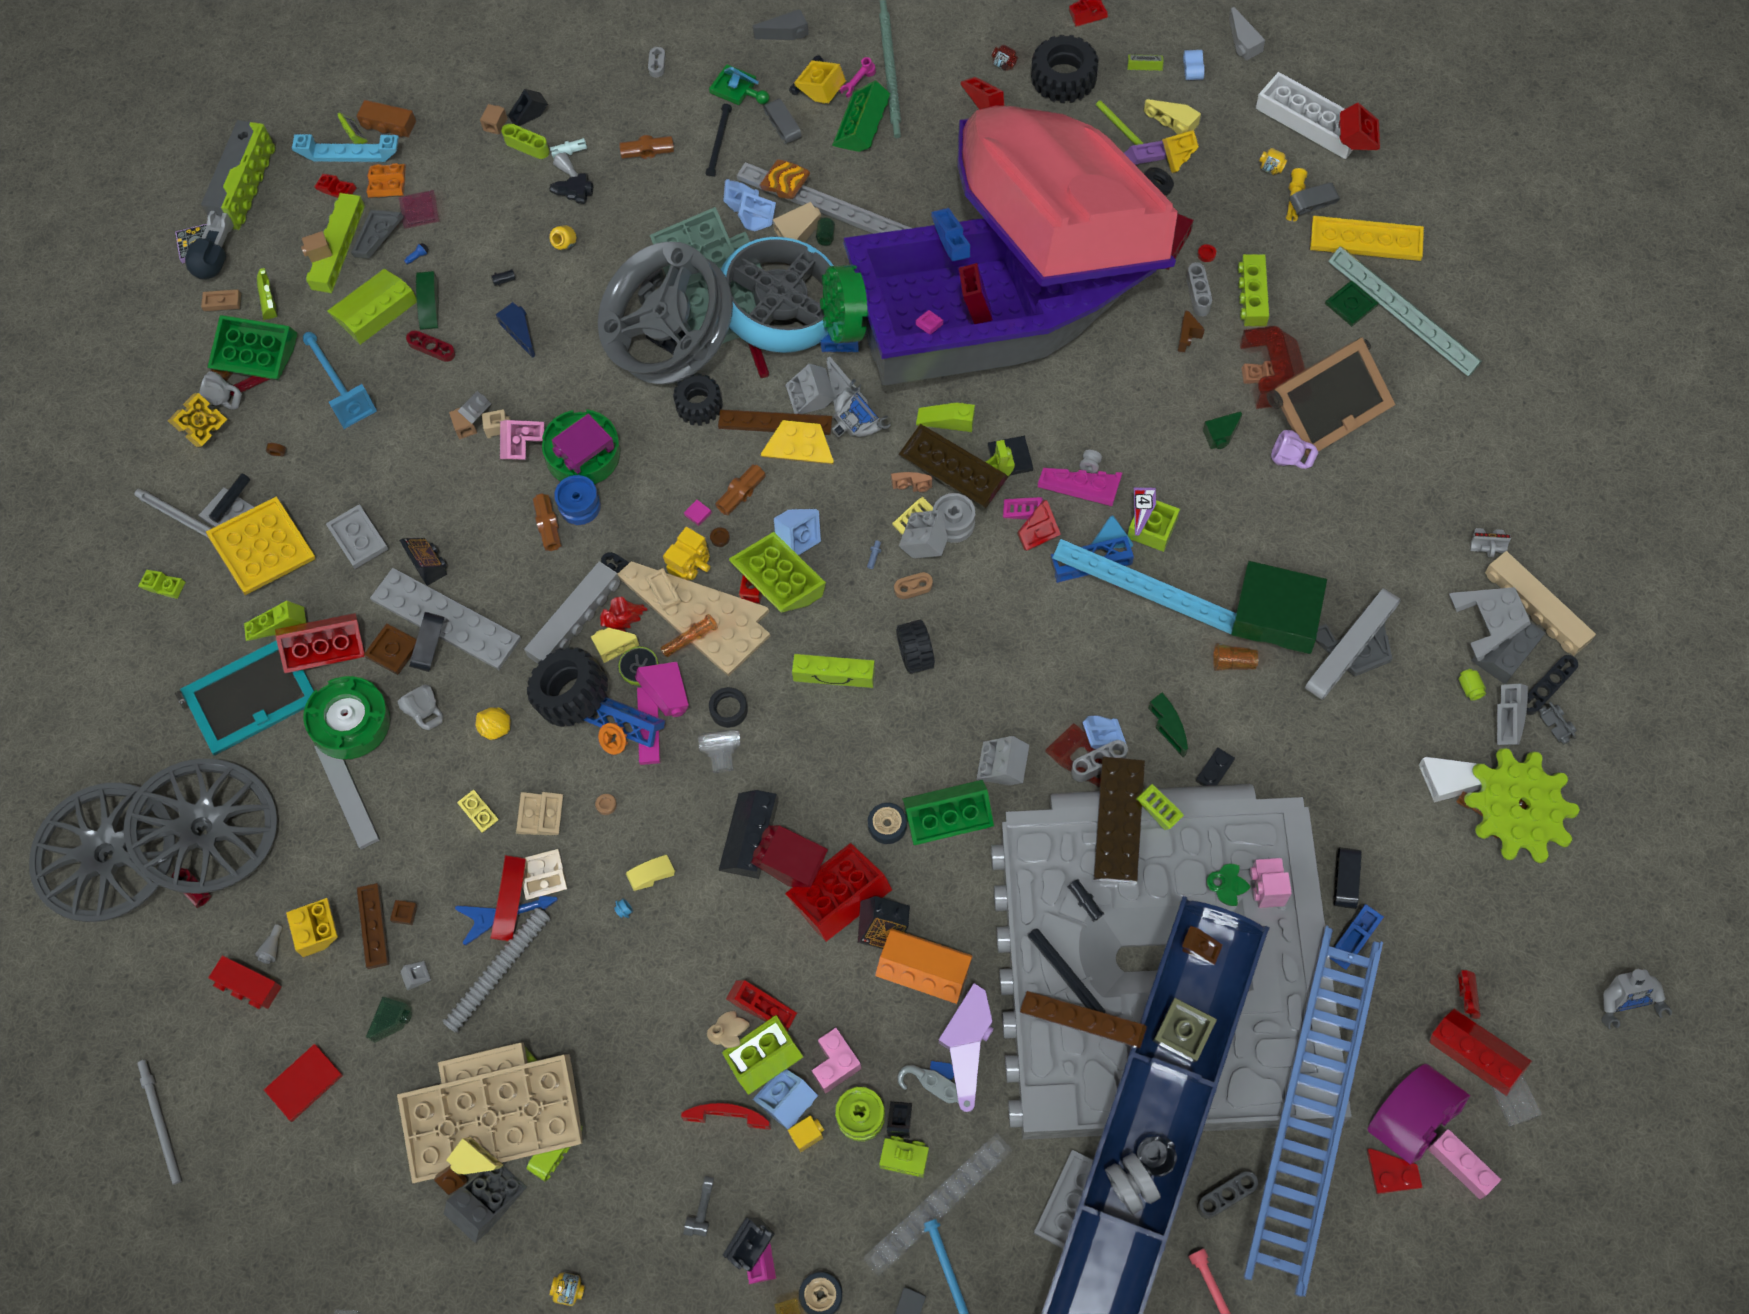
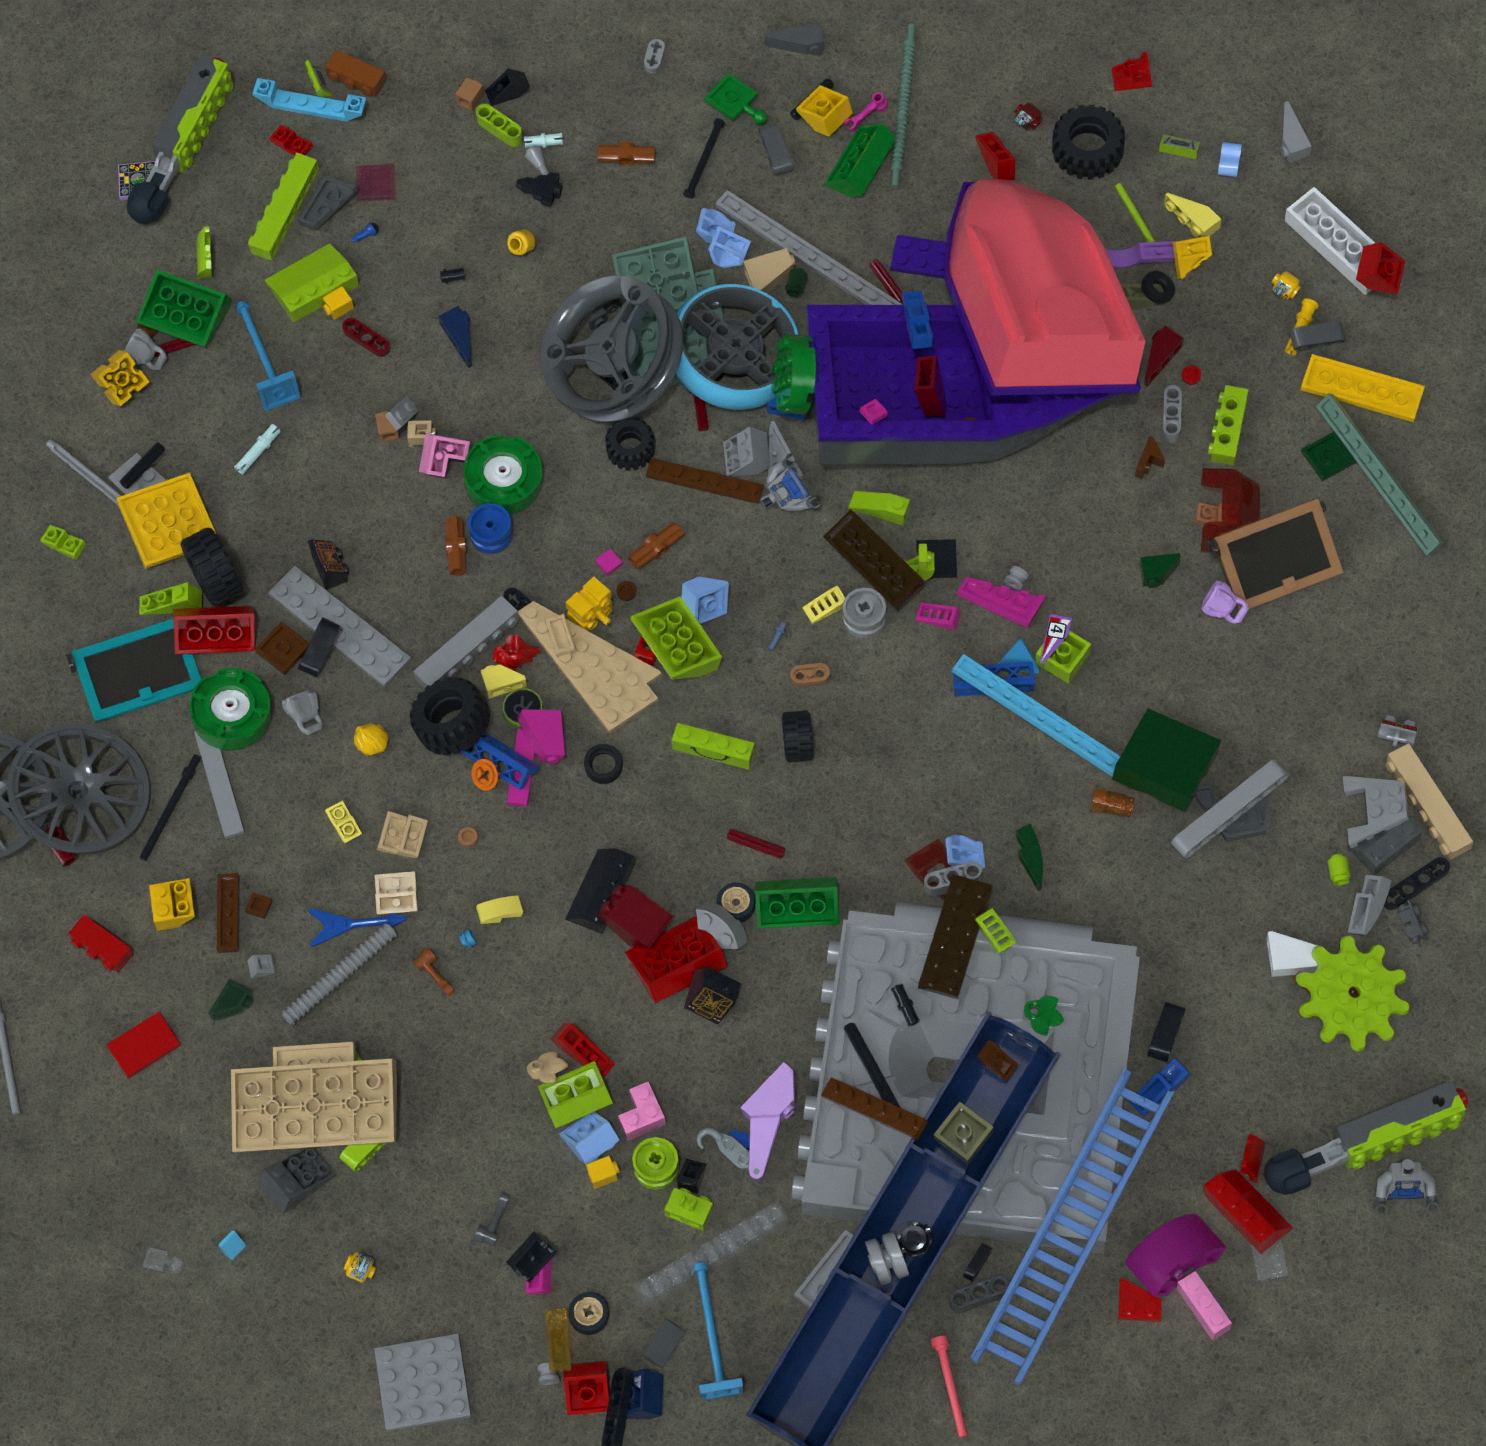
camera: 10 degrees right, 0 degrees up
(221, 300) = (157, 249): medium nougat plate -> none
(268, 950) = (125, 918): light grey cone -> none
(275, 449) = (193, 422): reddish brown tile -> none
(308, 581) = (212, 566): none -> black tyre
(313, 790) = (187, 774): none -> black bar
(316, 247) = (264, 211): medium nougat brick -> none
(344, 459) = (263, 442): none -> light aqua pin
(357, 536) = (263, 527): light grey plate -> none
(386, 180) = (345, 144): orange slope -> none
(398, 319) = (337, 303): none -> yellow brick
(425, 1289) = (232, 1245): none -> medium azure slope
(427, 300) = (370, 287): dark green slope -> none
(450, 1180) = (268, 1153): reddish brown plate -> none
(472, 1158) = (291, 1137): light yellow slope -> none
(508, 898) = (360, 909): red slope -> none
(581, 442) = (504, 471): magenta panel -> none
(583, 940) = (425, 961): none -> dark orange brick
(696, 631) = (585, 684): clear orange pin -> none
(698, 1114) = (506, 1136): red slope -> none
(720, 747) = (588, 802): clear piece -> none
(736, 74) = (733, 93): dark azure piece -> none
(784, 179) = (764, 217): slope -> none
(799, 442) = (724, 507): yellow wing -> none
(878, 849) = (721, 925): none -> light grey brick
(894, 759) = (756, 843): none -> dark red axle
(905, 214) = (886, 280): none -> dark red axle
(919, 481) = (838, 569): nougat slope -> none
(924, 534) = (830, 625): light grey slope -> none
(924, 966) = (742, 1040): orange slope -> none
(937, 192) = (918, 256): none -> dark purple plate
(1003, 761) = (861, 863): light grey slope -> none
(1038, 527) = (947, 638): red wing -> none
(1215, 768) = (1066, 906): black plate -> none
(1217, 1160) = (977, 1262): none -> black beam
(1271, 883) = (1081, 1019): bright pink brick -> none
(1583, 953) = (1371, 1137): none -> piece

